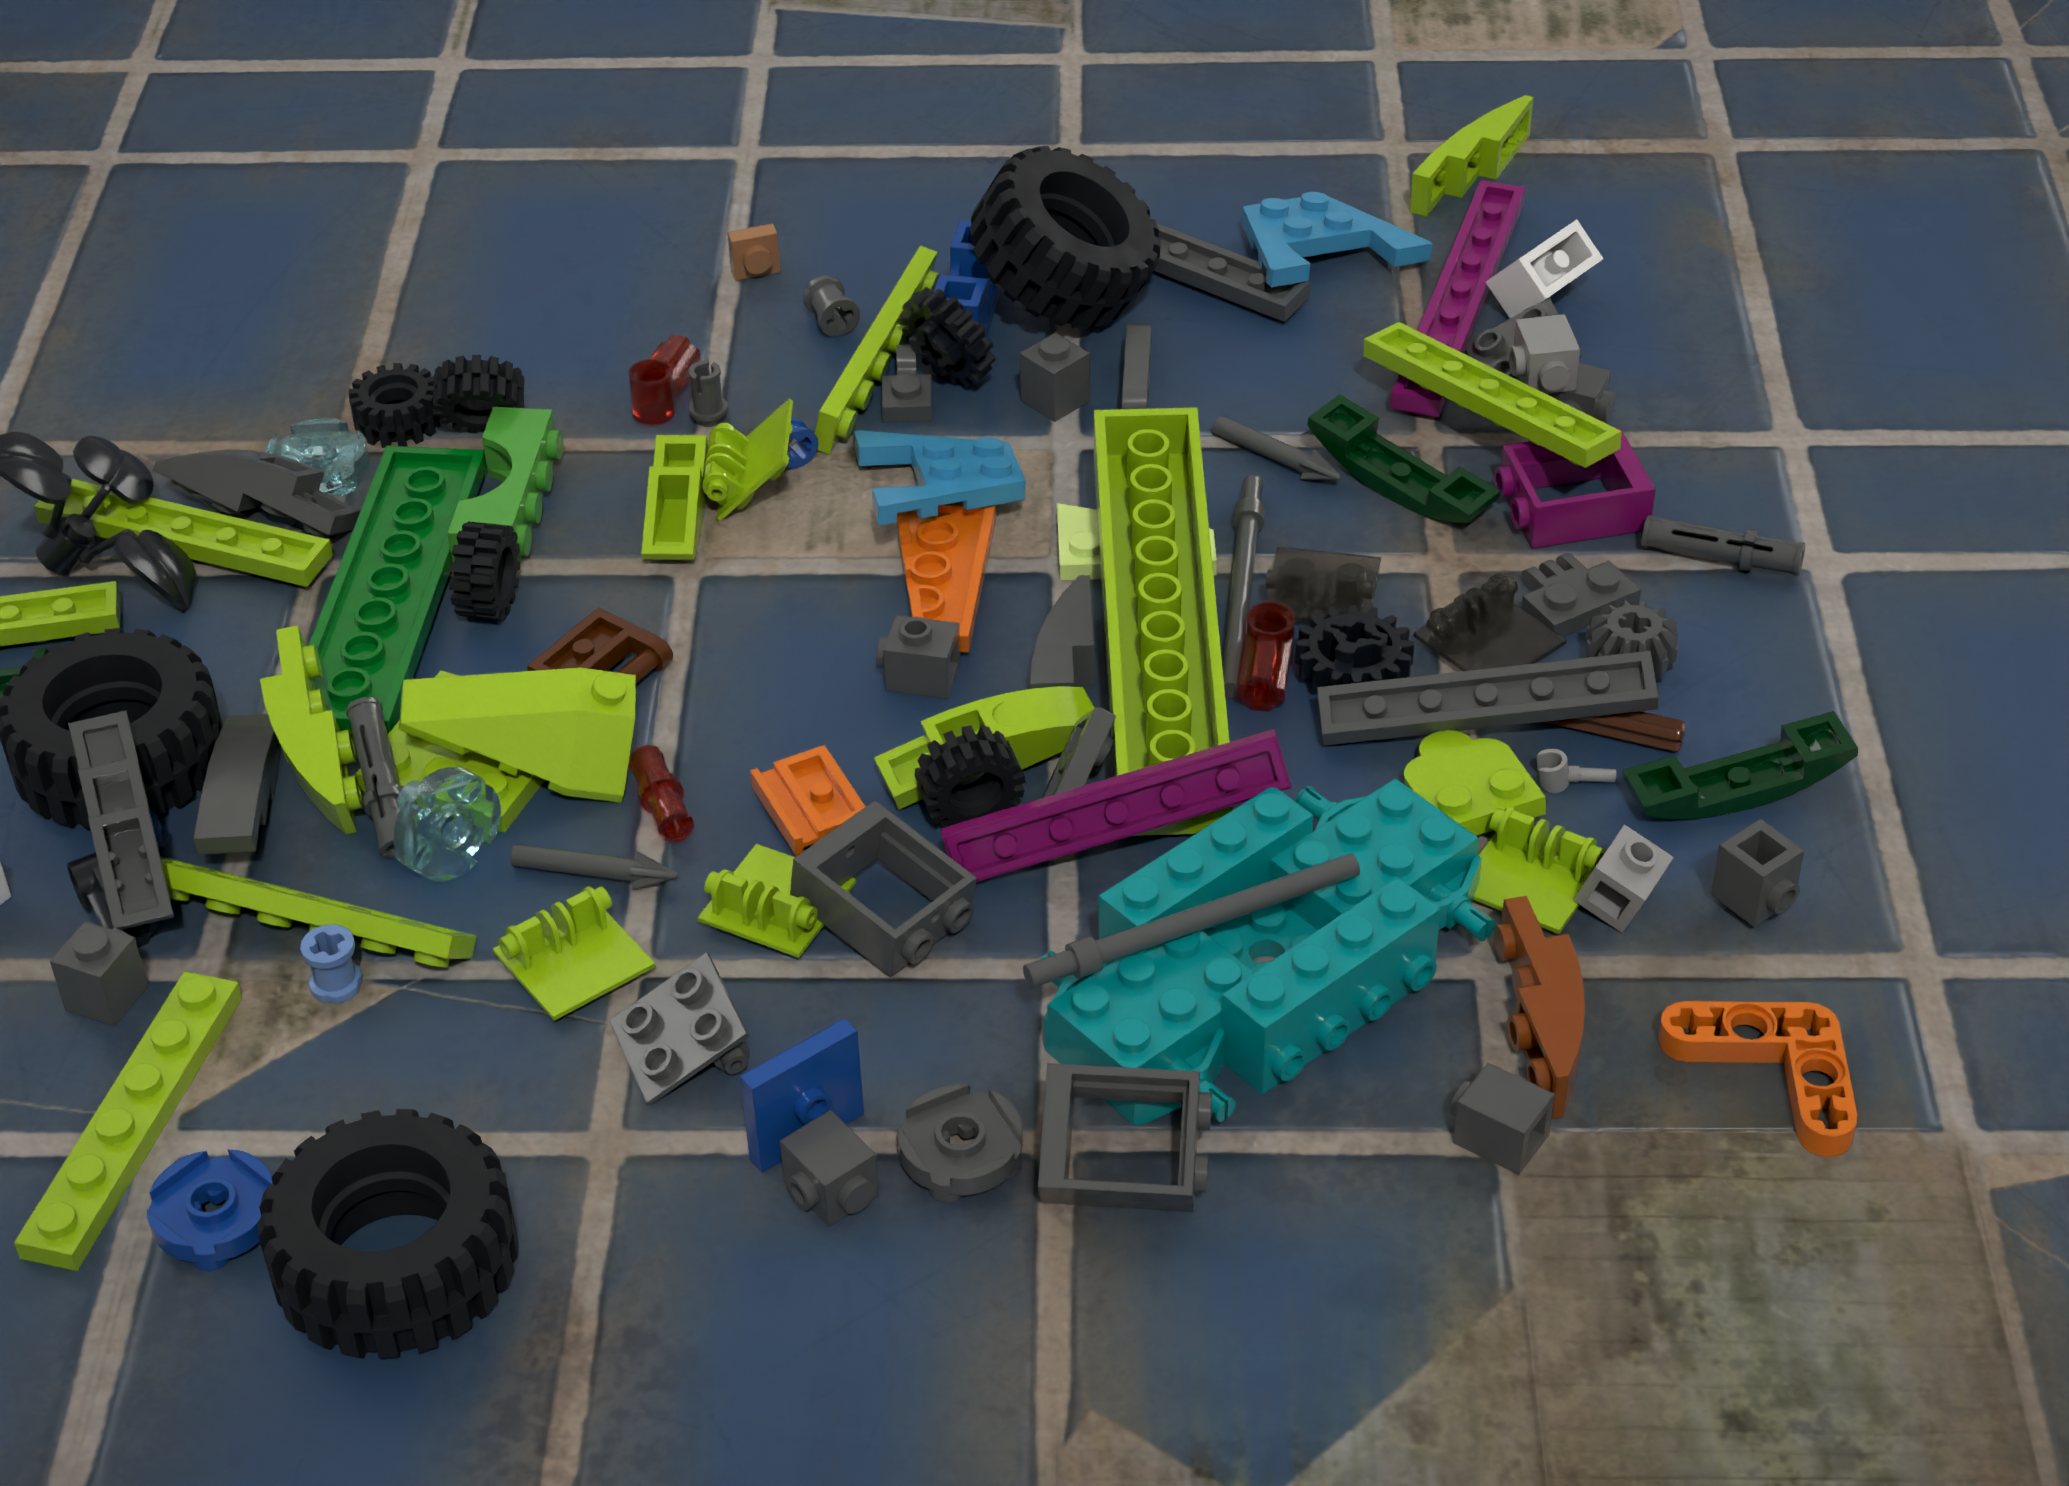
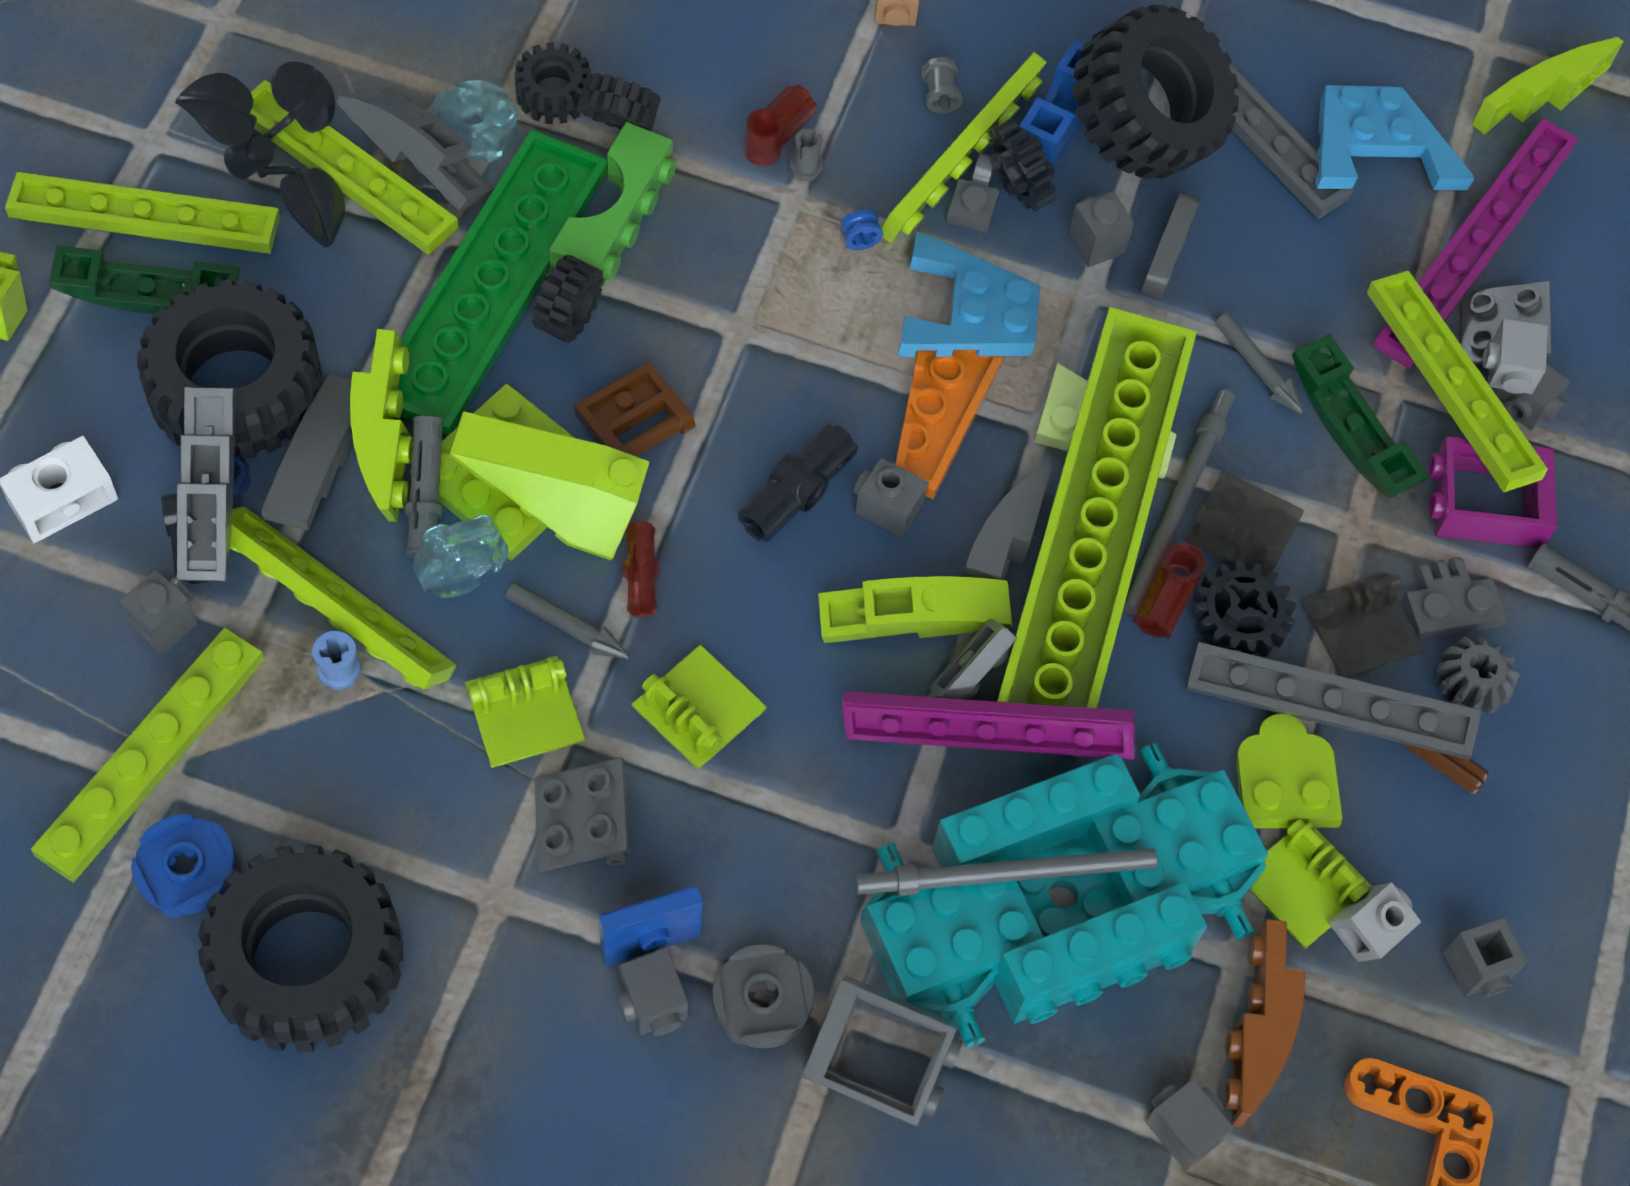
camera: 10 degrees right, 20 degrees up
(675, 498) = (747, 261): lime slope -> none
(742, 463) = (816, 241): lime hinge -> none
(806, 796) = (756, 616): orange plate -> none
(810, 672) = (797, 483): none -> black piece
(883, 836) = (760, 690): dark grey window -> none
(964, 757) = (884, 648): black tyre -> none
(1544, 269) = (1558, 244): white brick -> none
(1556, 774) = (1375, 789): light grey hand -> none
(1745, 780) = (1516, 844): dark green slope -> none

